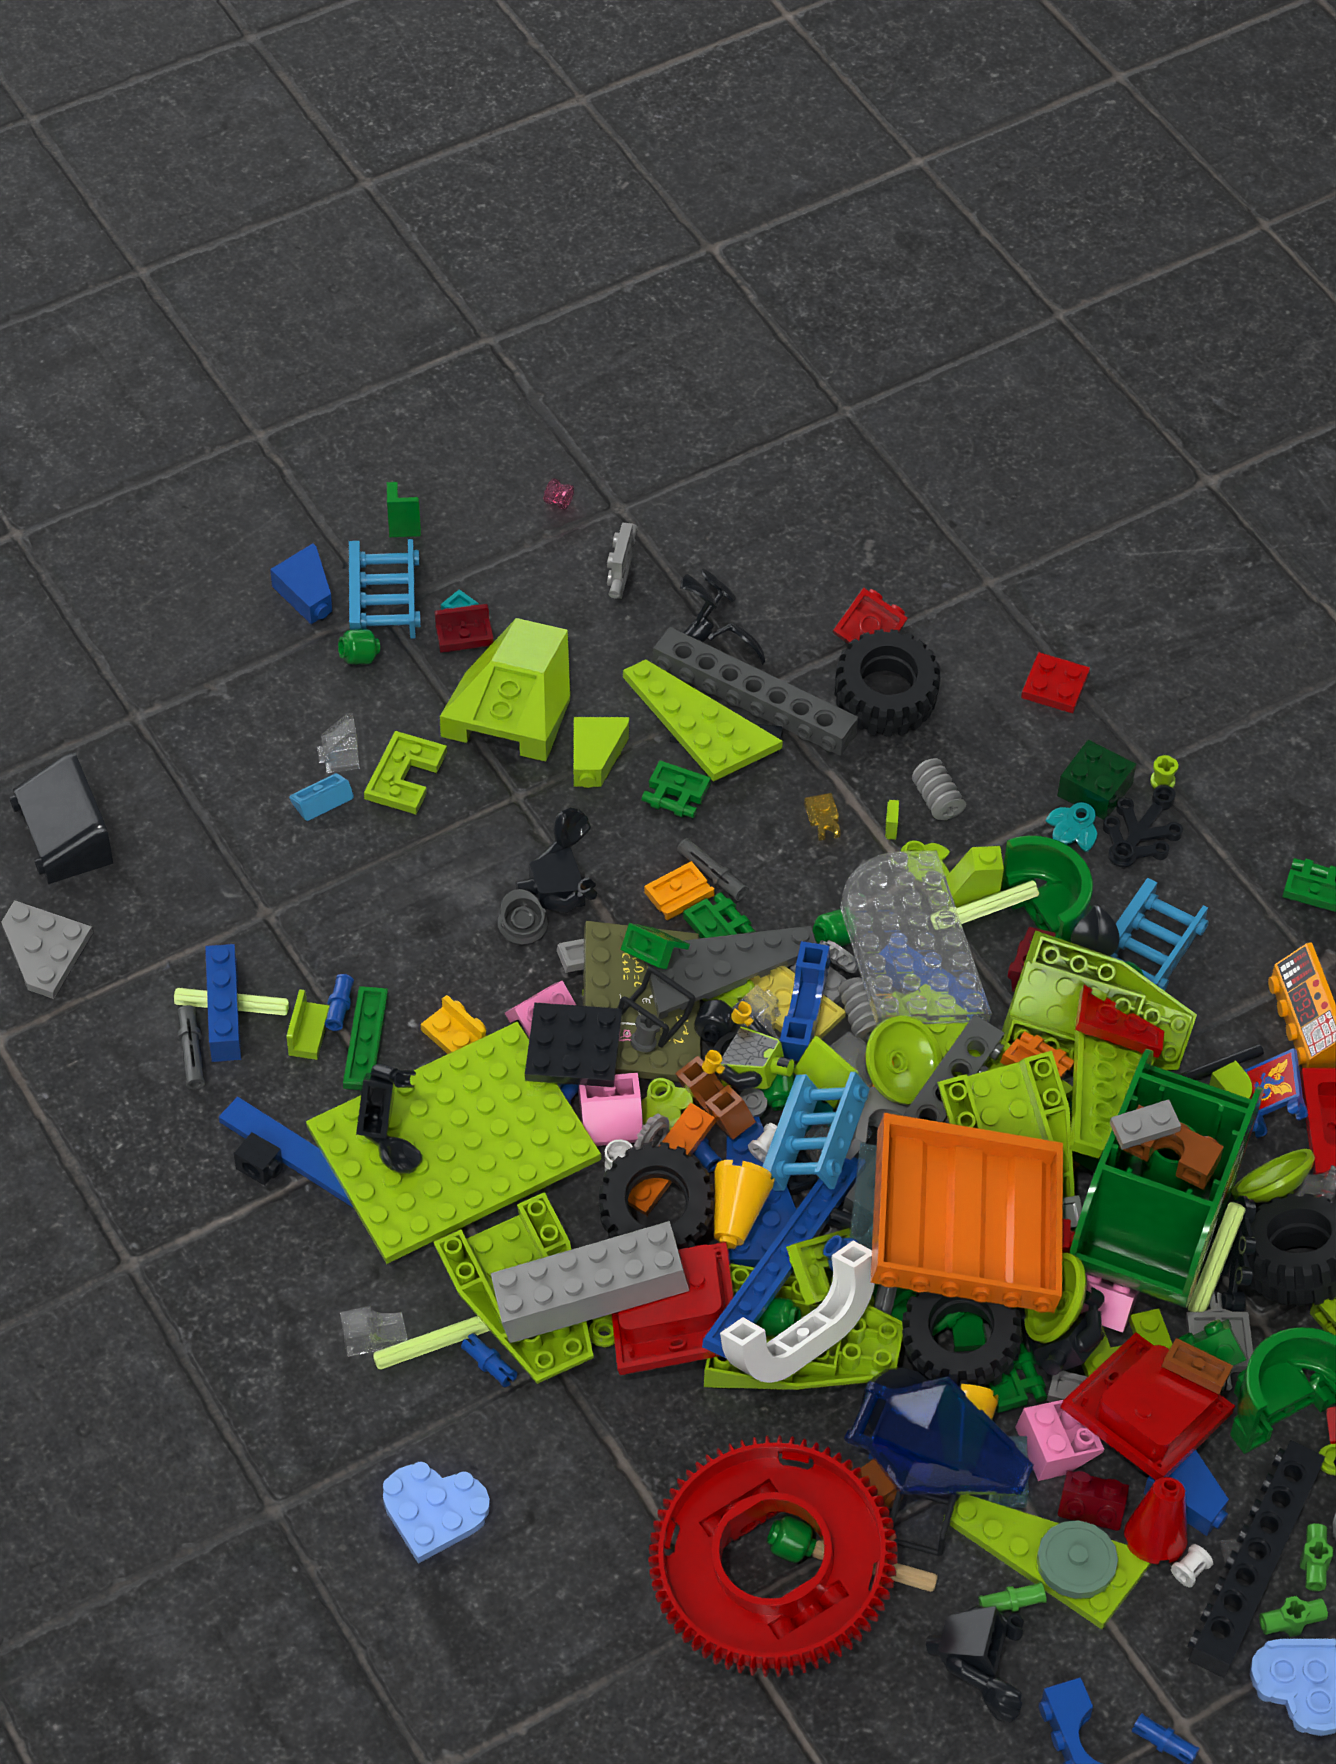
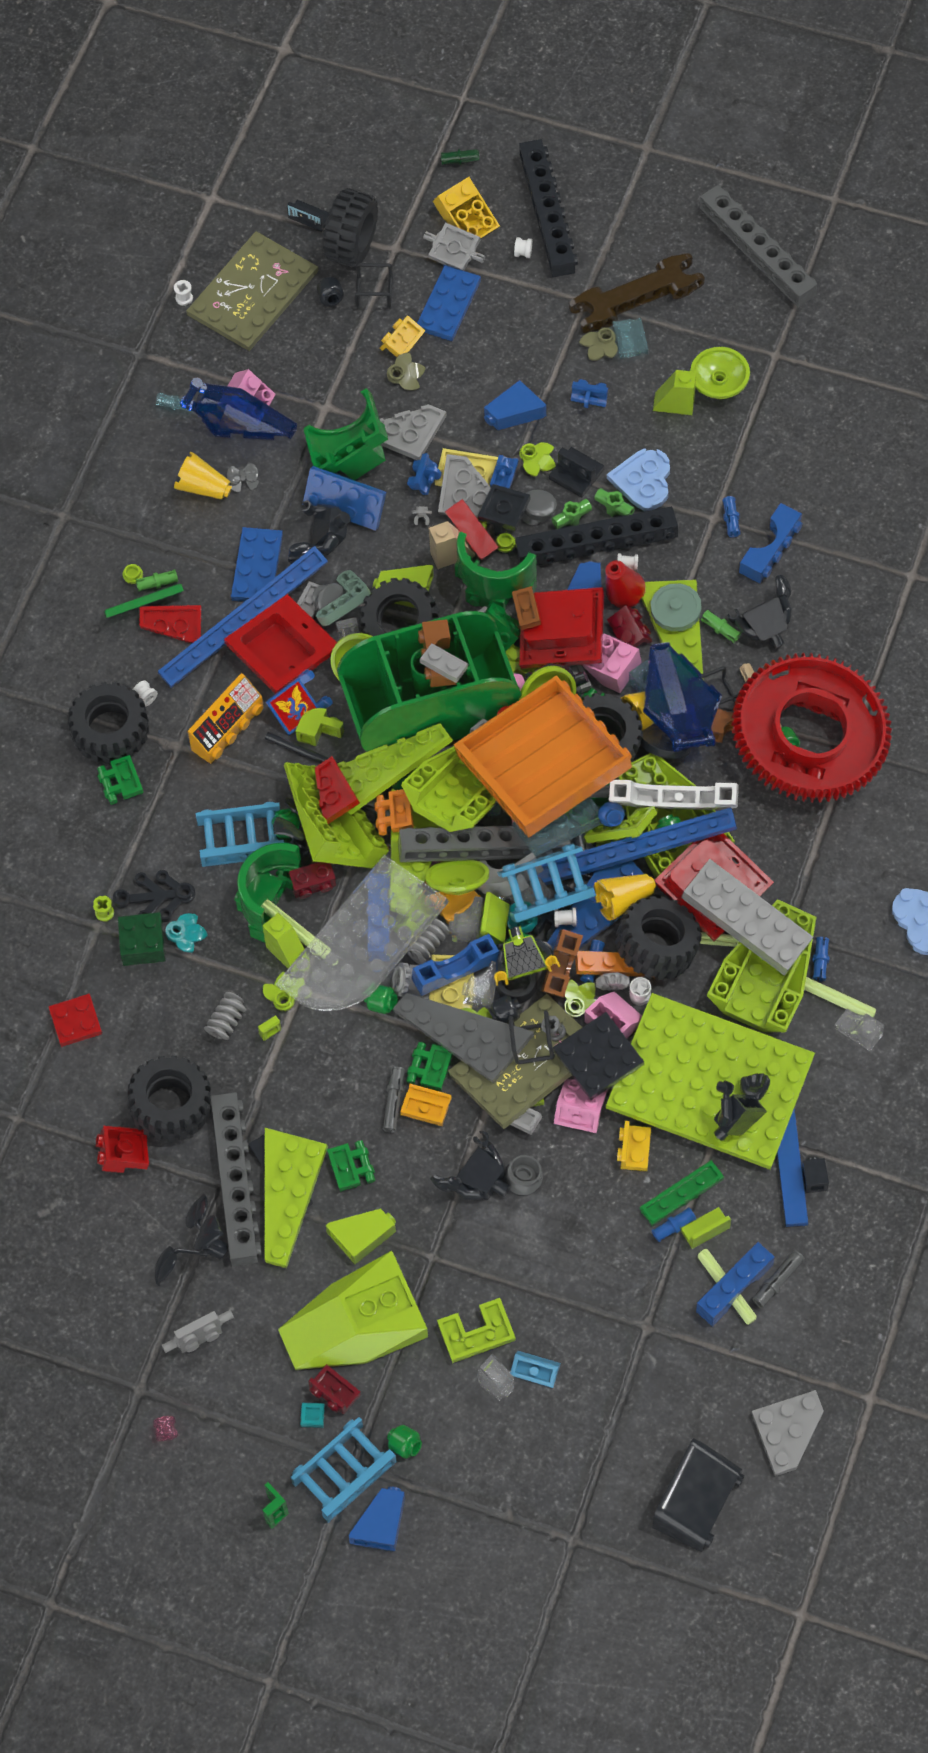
camera: 125 degrees left, 10 degrees up
(651, 944) = (491, 1067): green panel -> none
(823, 812) = (295, 1074): clear yellow plate -> none

